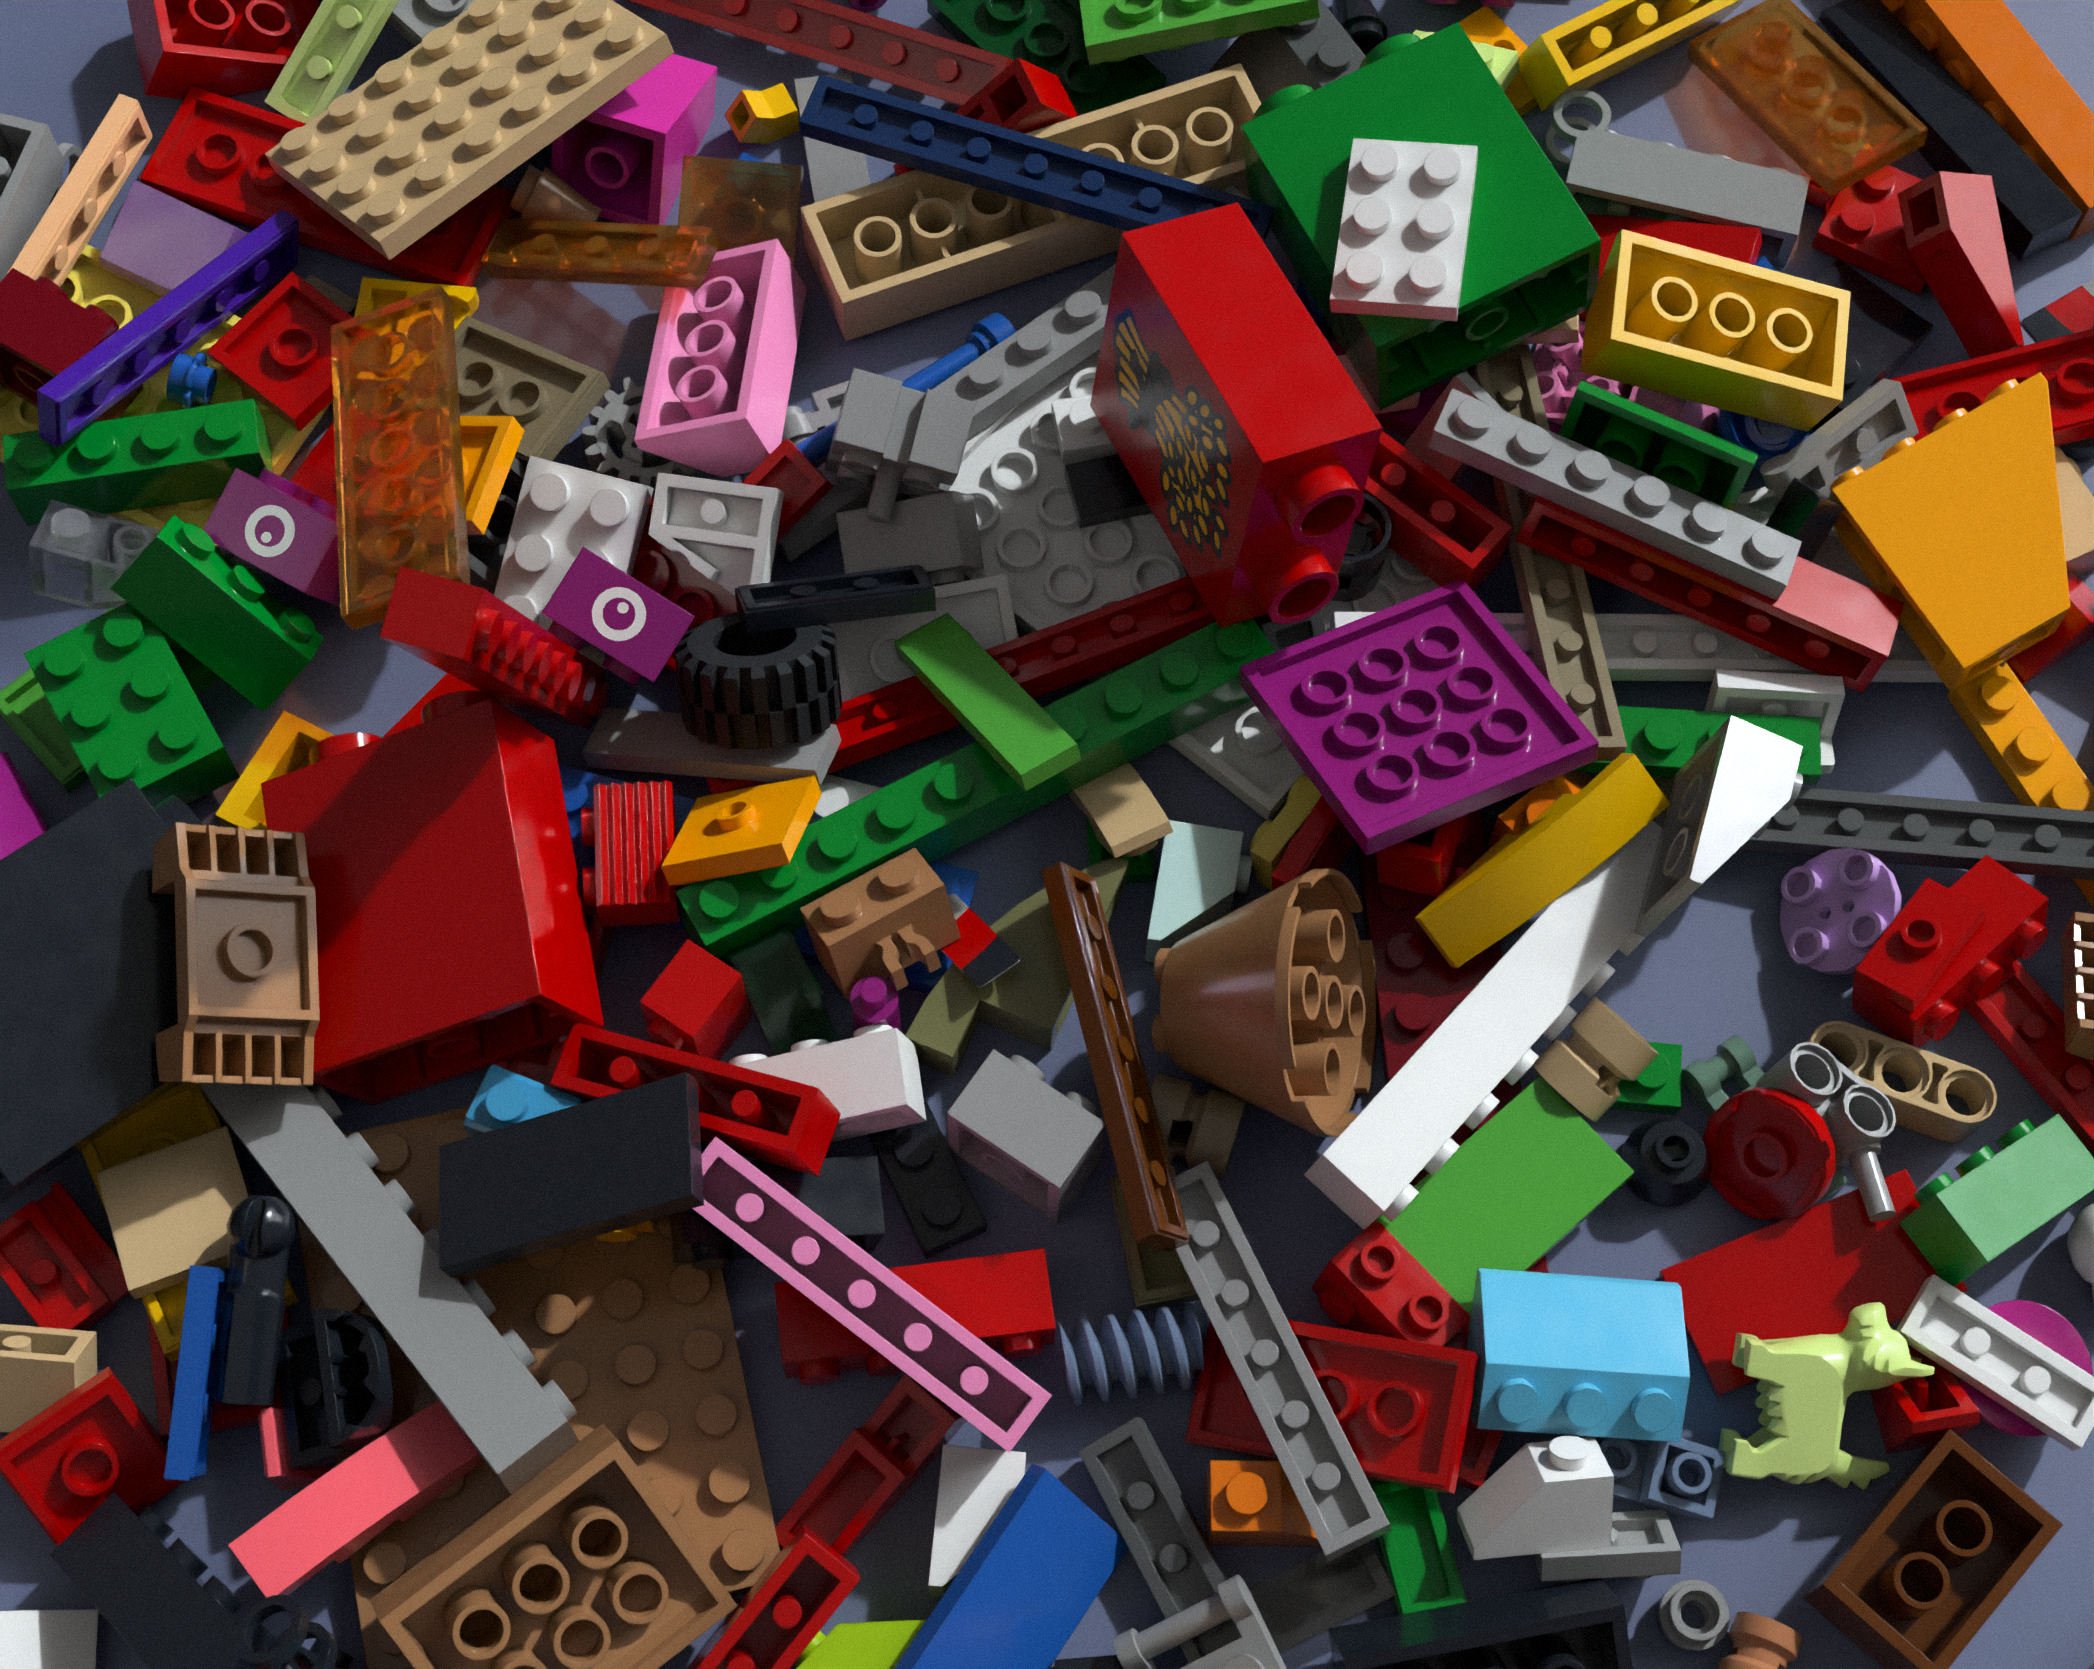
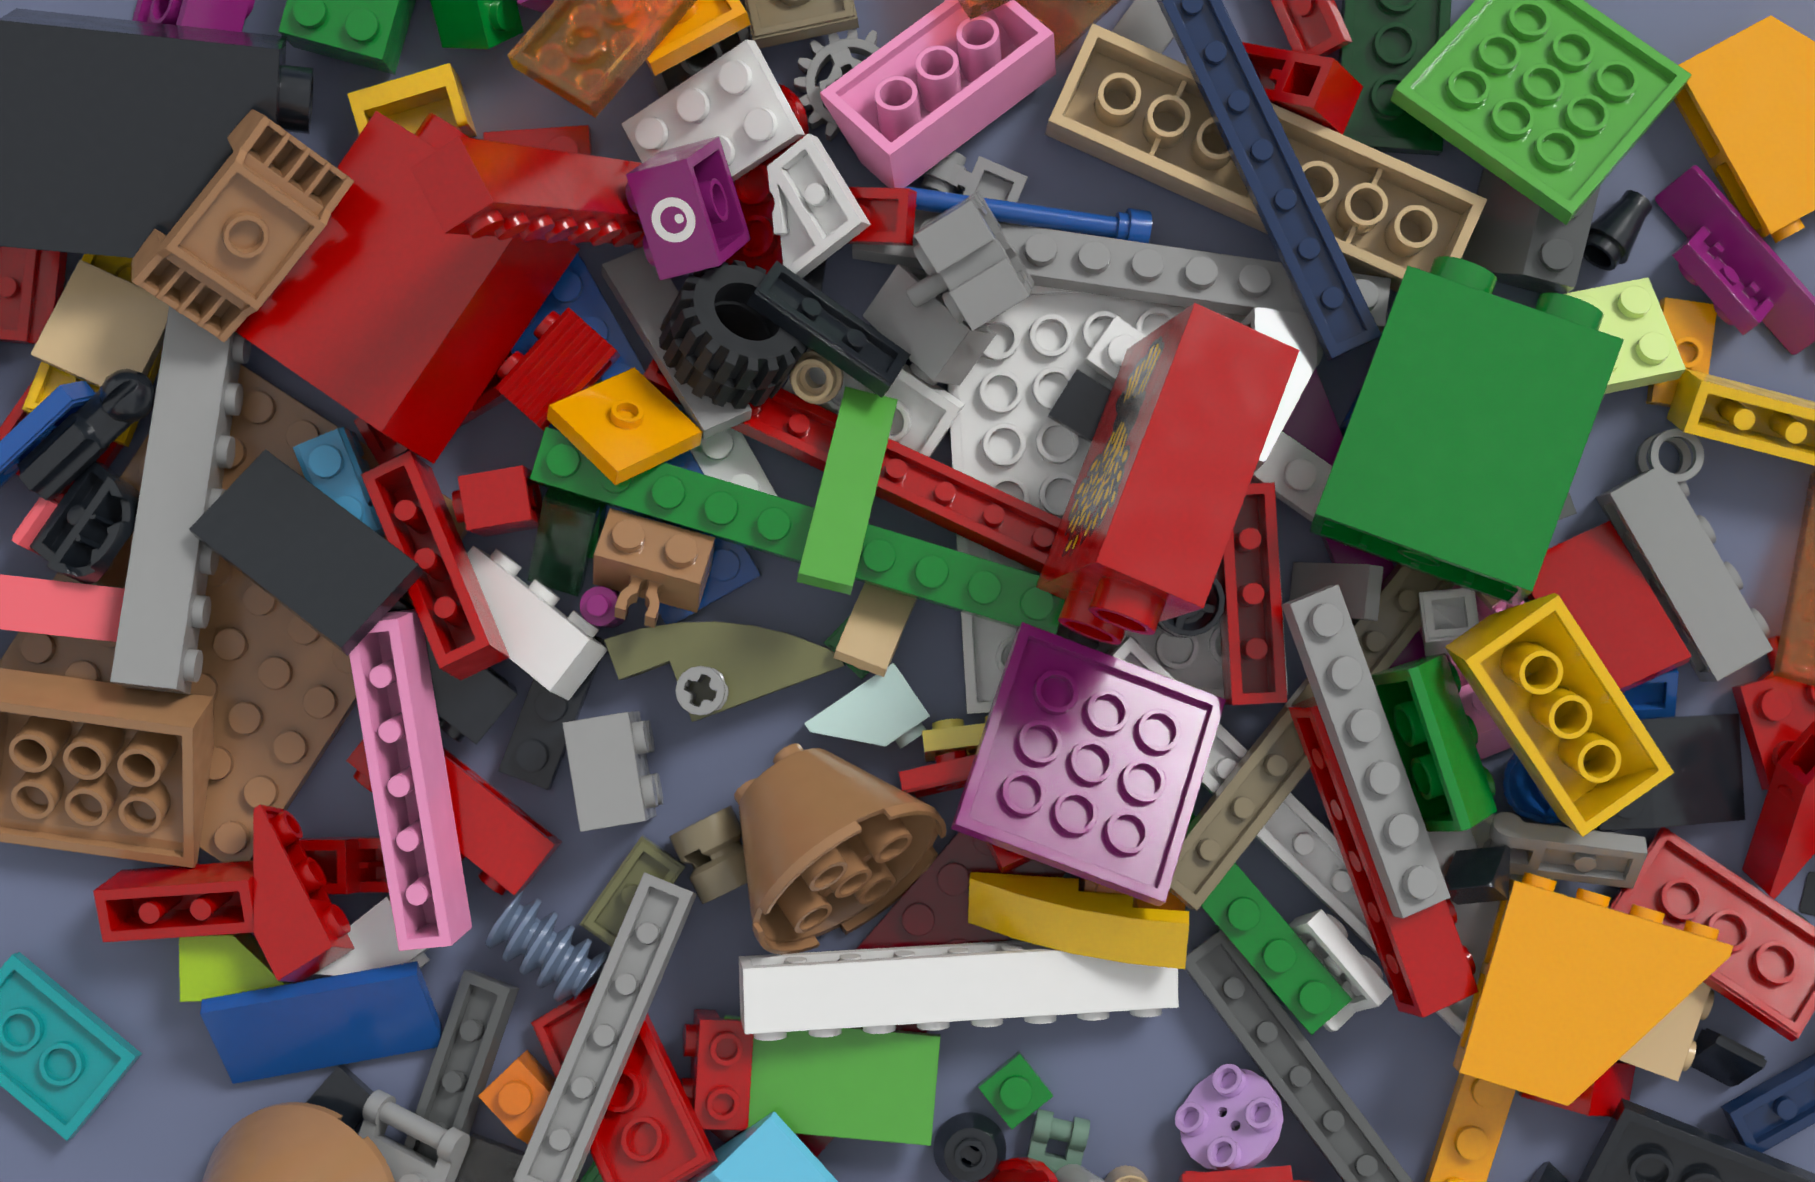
camera: 50 degrees right, 20 degrees up
(878, 1535) = (290, 907): none -> red slope
(881, 656) = (809, 390): none -> tan plate
(979, 950) = (697, 632): sticker -> none
(1047, 968) = (686, 697): none -> light grey bush
(1115, 1059) = (698, 781): reddish brown tile -> none
(1404, 229) = (1419, 453): white plate -> none
(1554, 371) = (1446, 617): none -> white slope
(1595, 1059) = (988, 1059): tan wheel -> none
(1714, 808) = (1208, 1007): slope -> none

